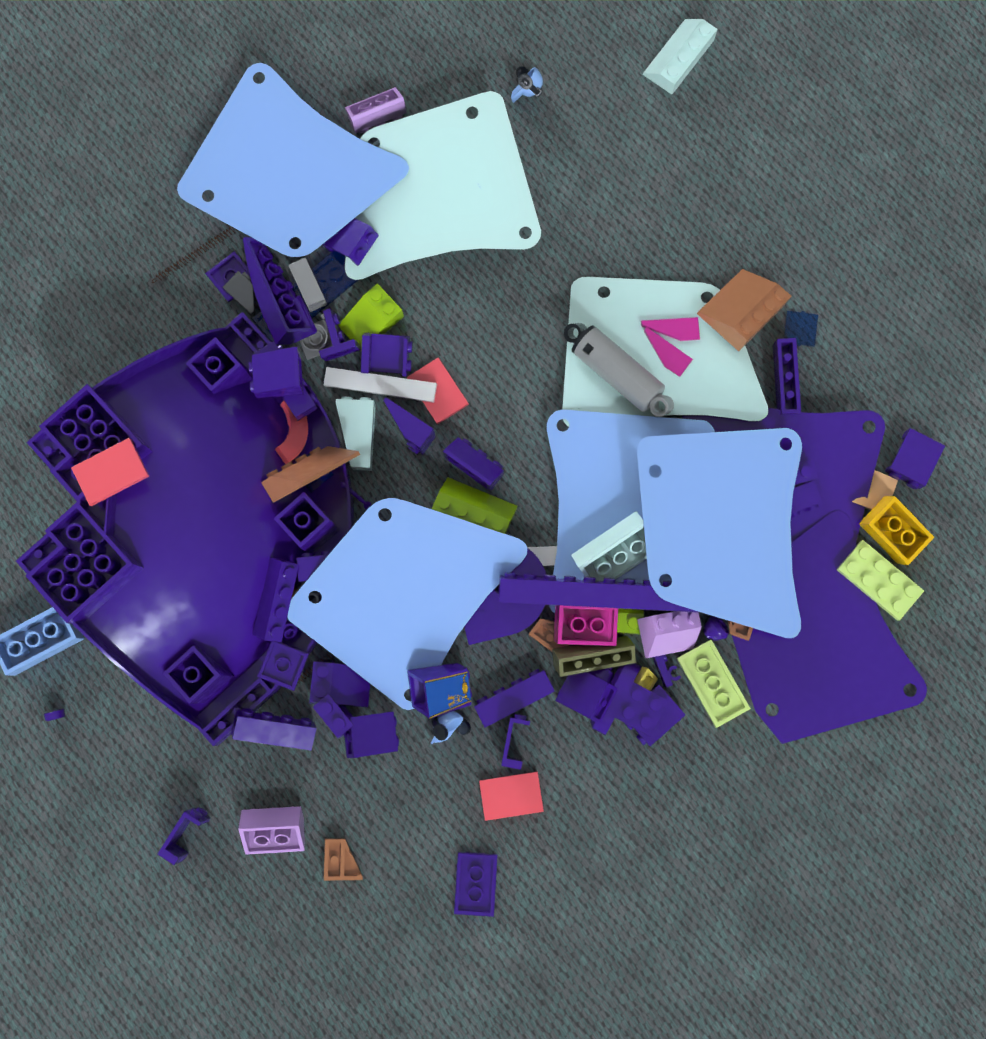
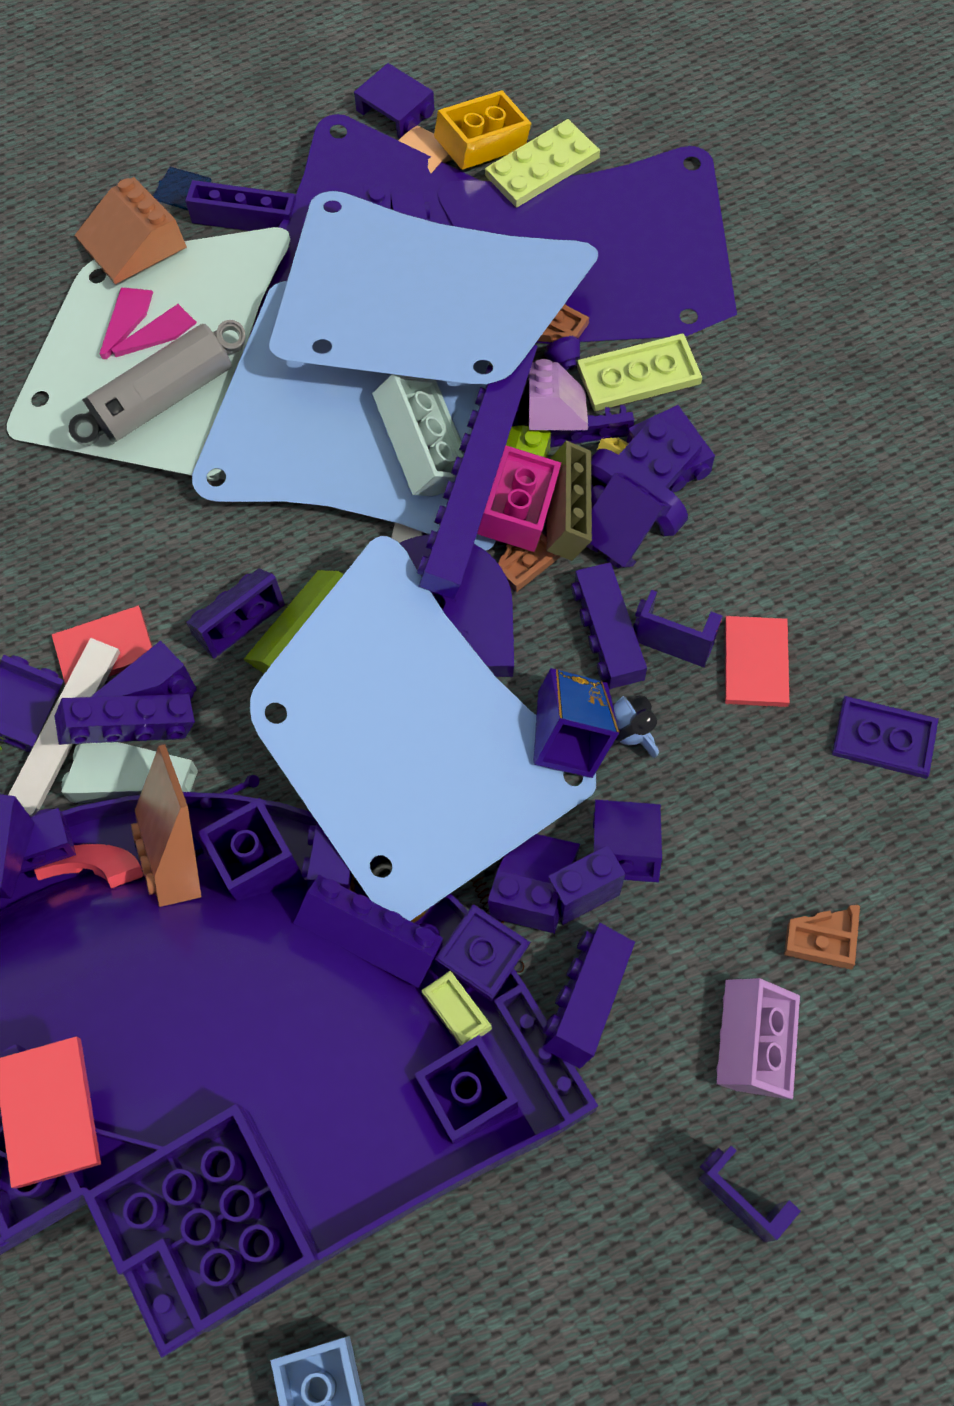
camera: 80 degrees left, 15 degrees down
(246, 658) = (456, 1009): none -> yellowish green tile
(380, 416) = (123, 718): none -> dark purple brick

